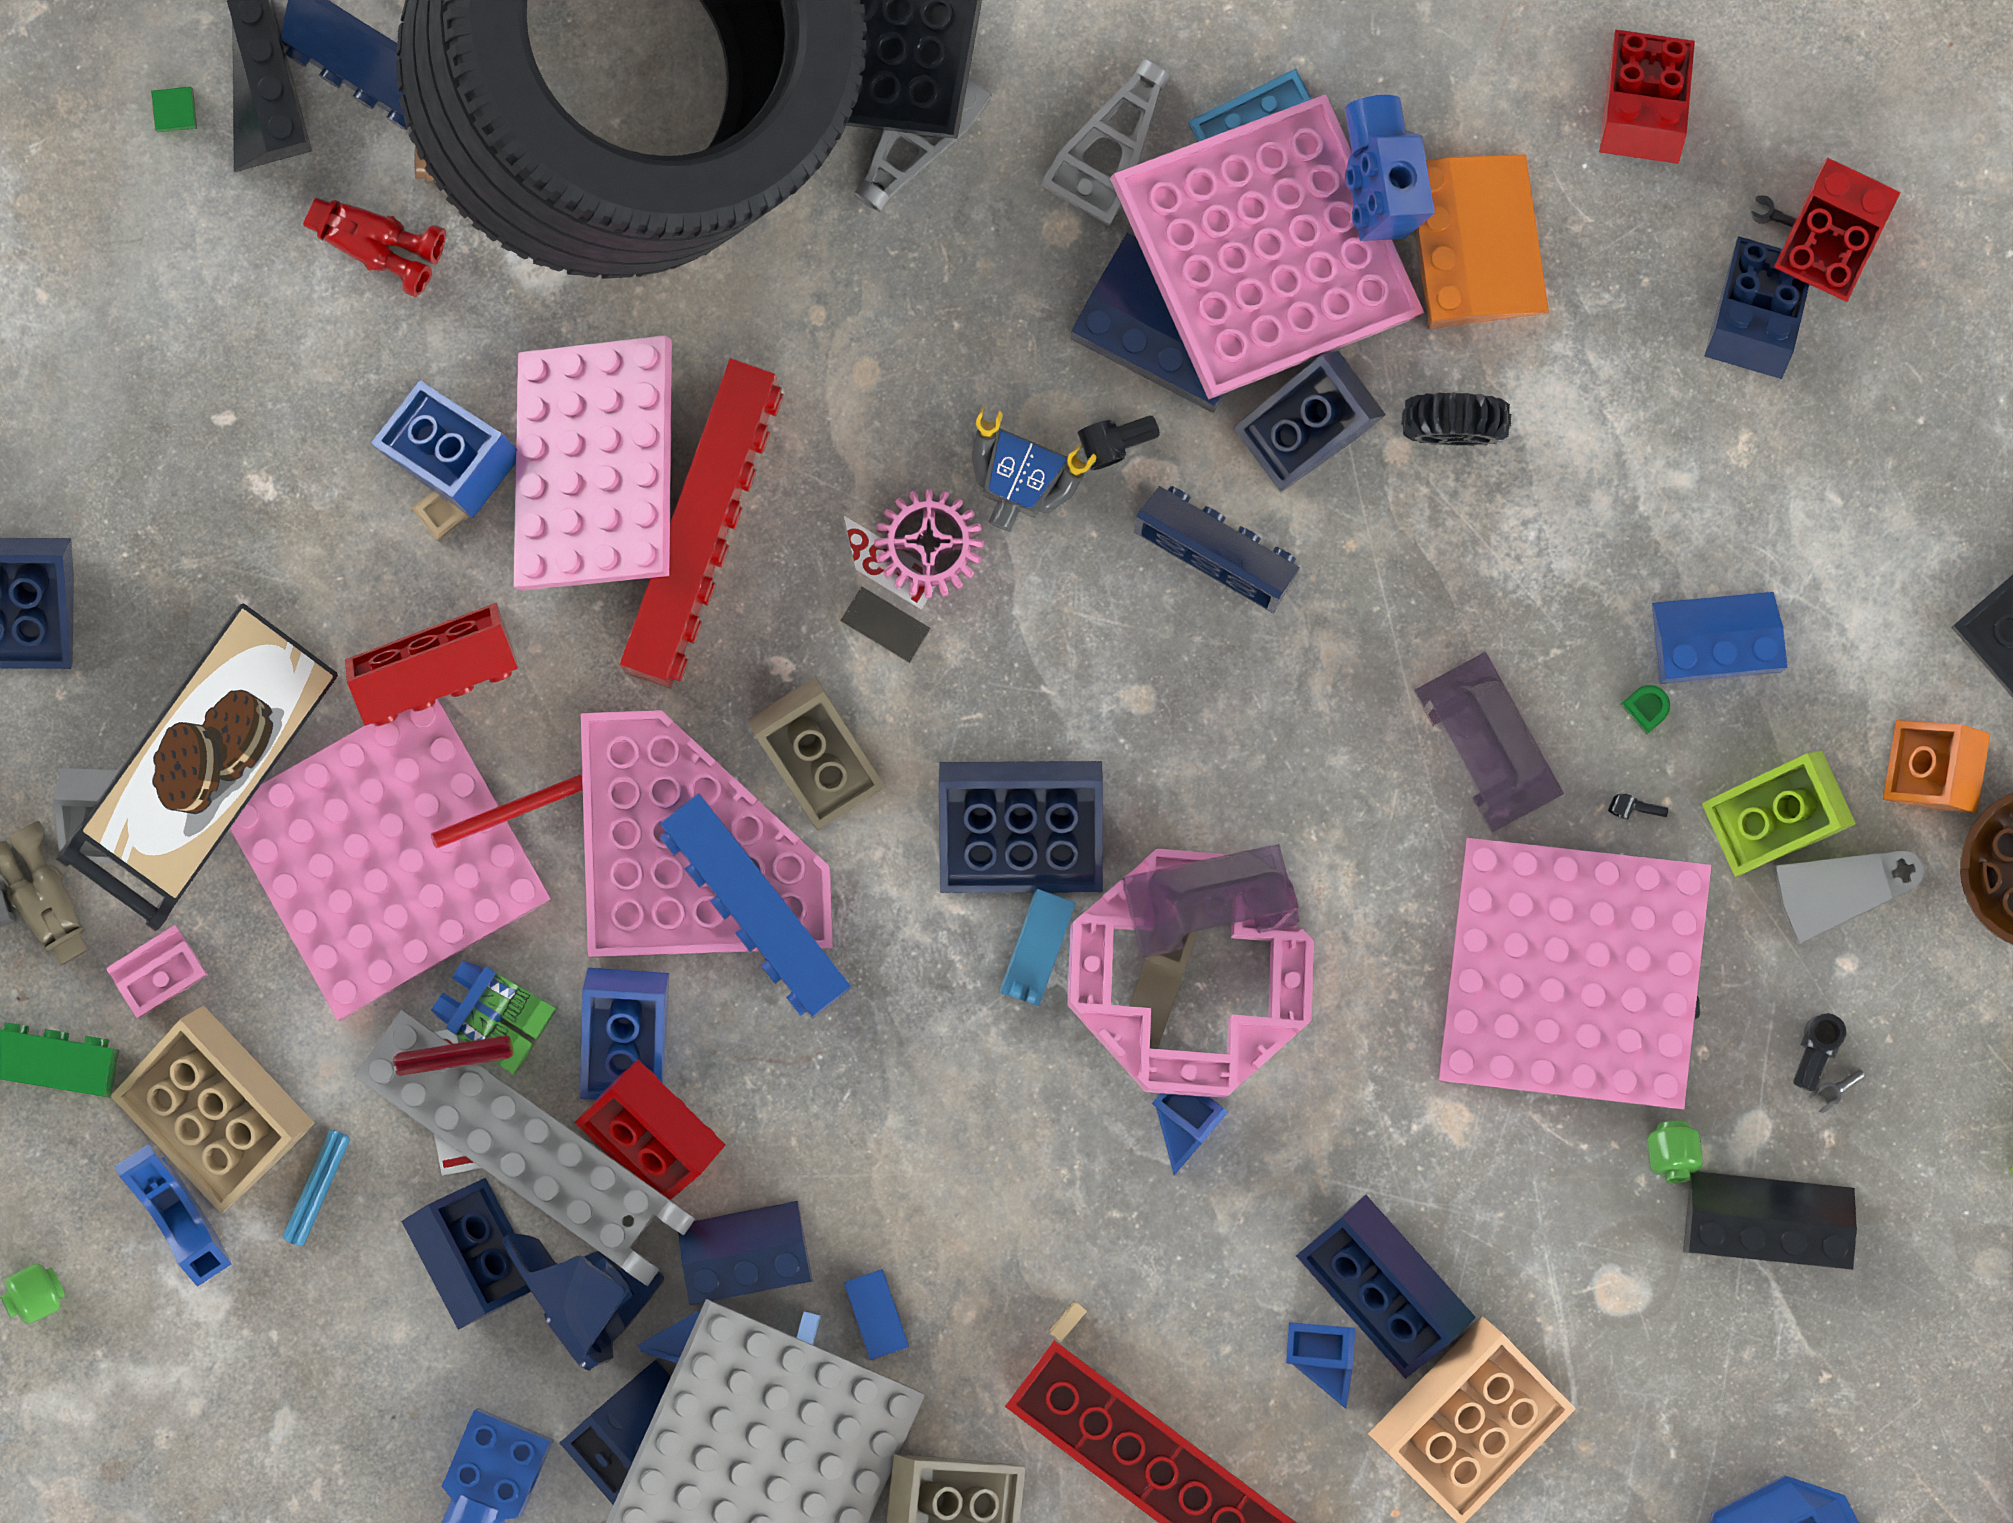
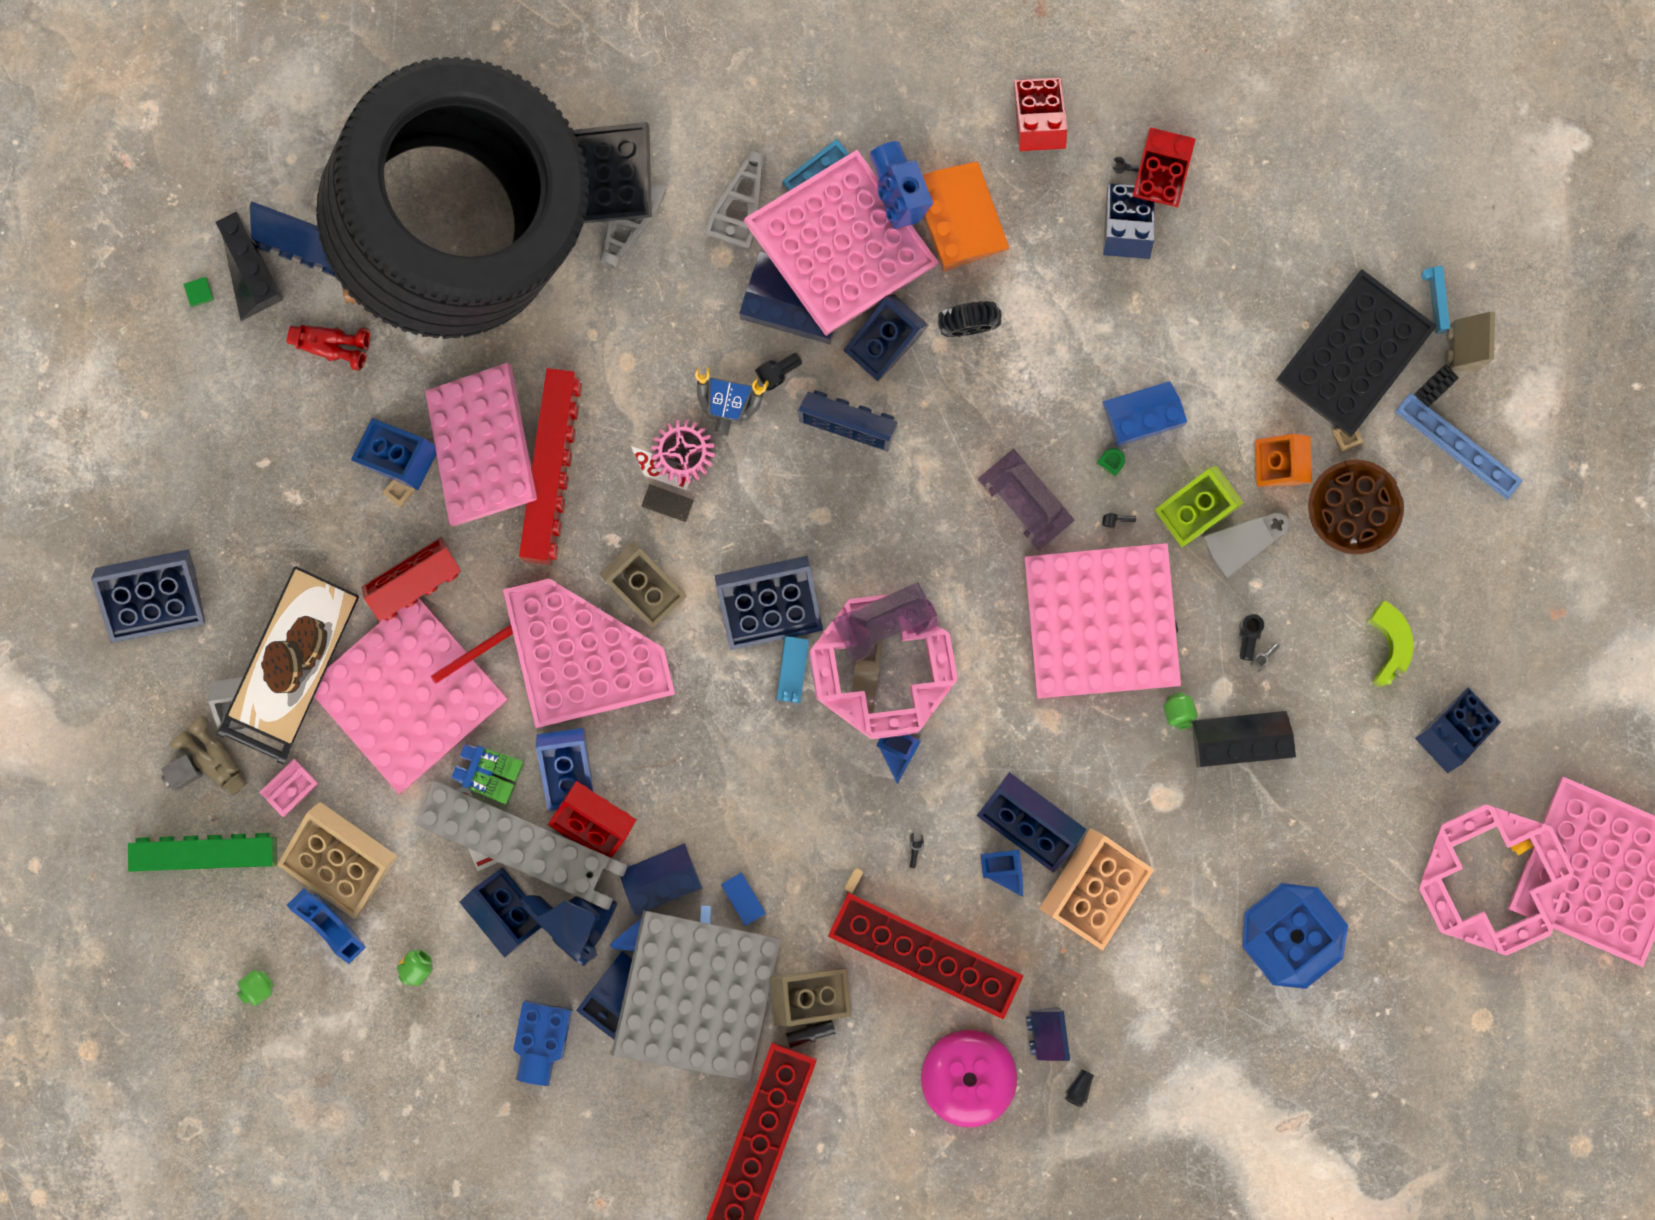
camera: 15 degrees left, 0 degrees up
(305, 1315) = (415, 968): none -> bright green head
(316, 1188) = (406, 893): dark azure axle -> none
(453, 1055) = (469, 800): dark red axle -> none
(755, 906) = (625, 679): blue brick -> none
(1183, 1287) = (916, 846): none -> black hand

